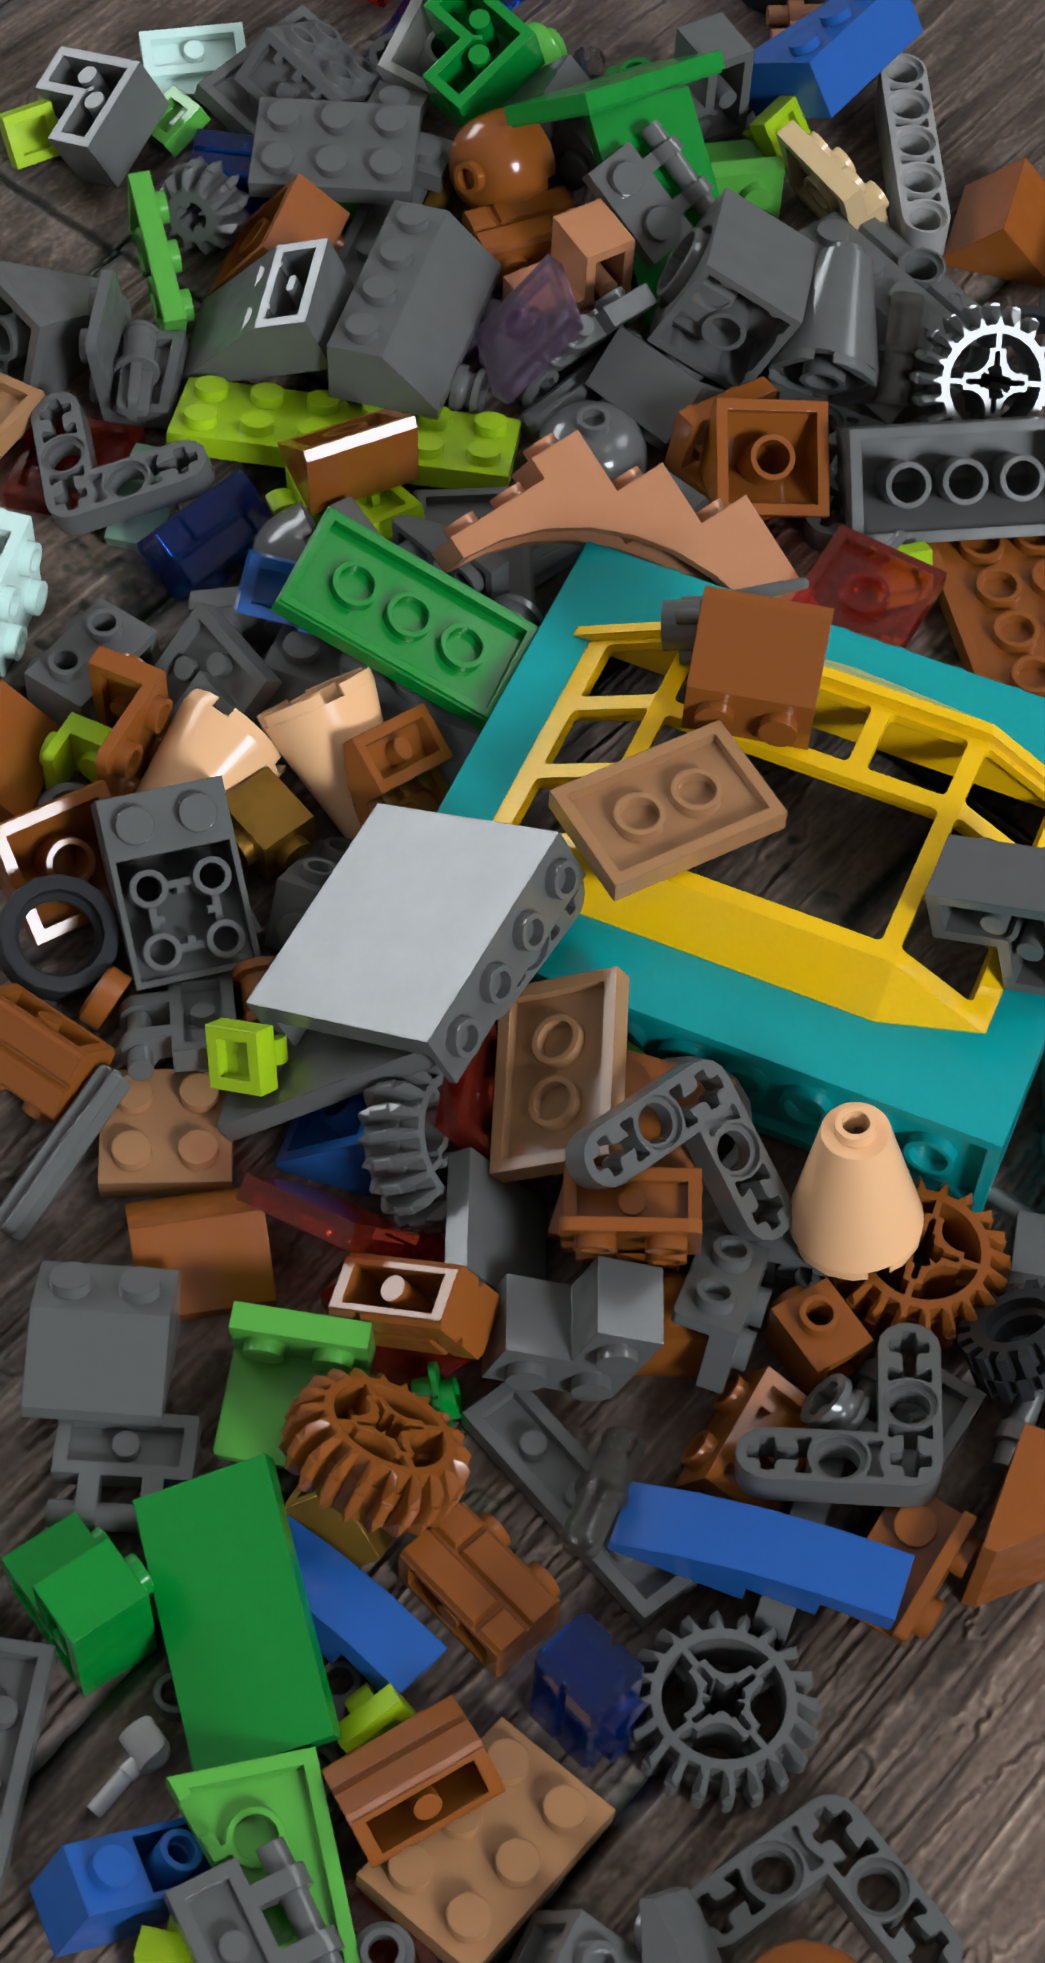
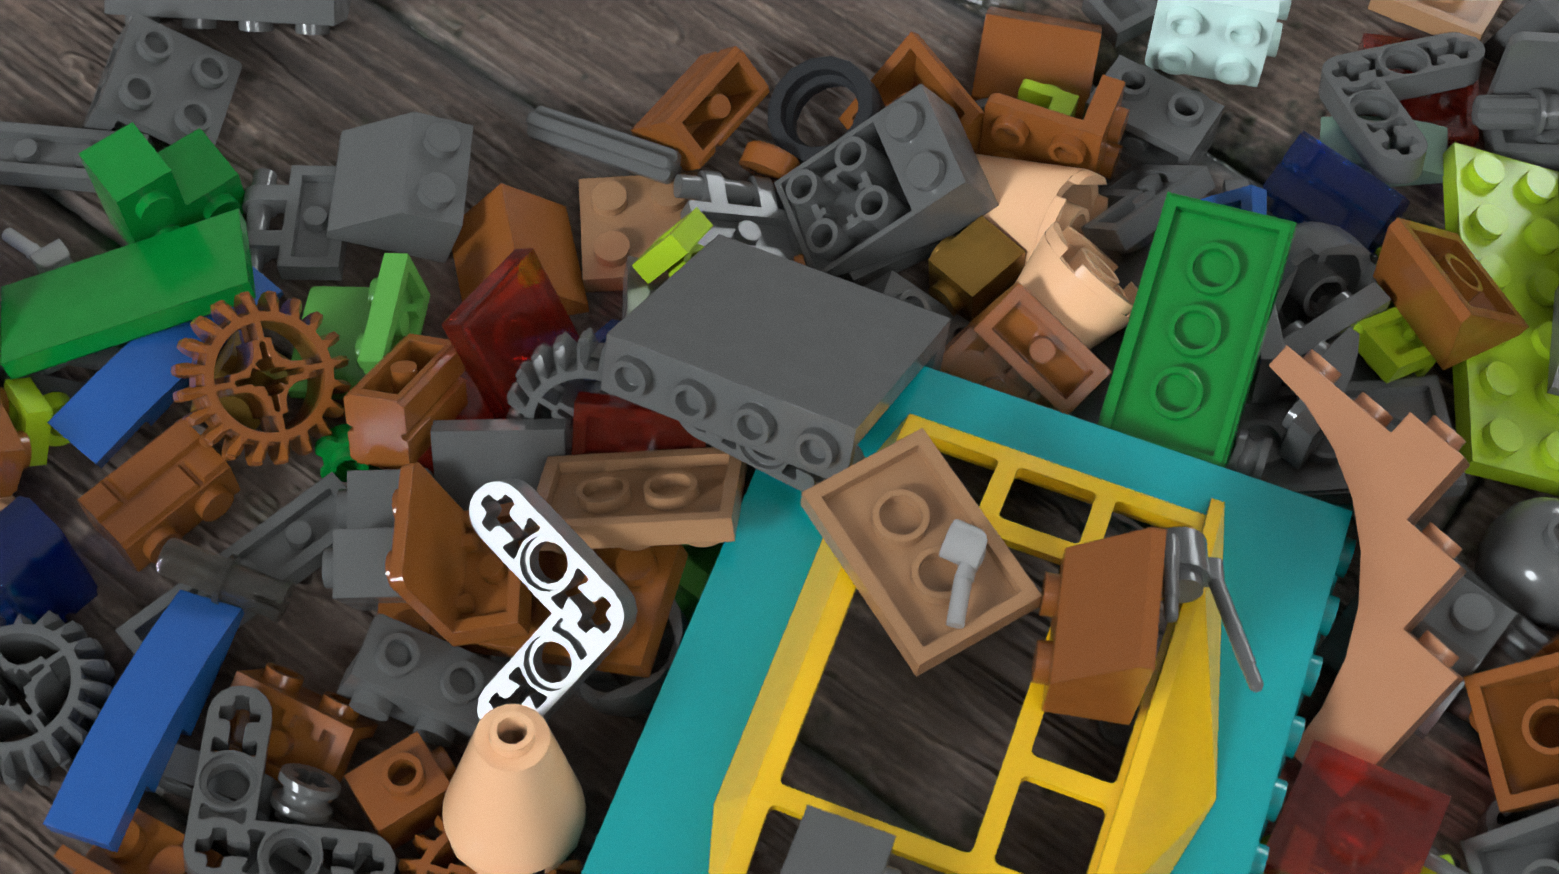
camera: 90 degrees right, 5 degrees up
(688, 754) = (967, 548): none -> light grey hand

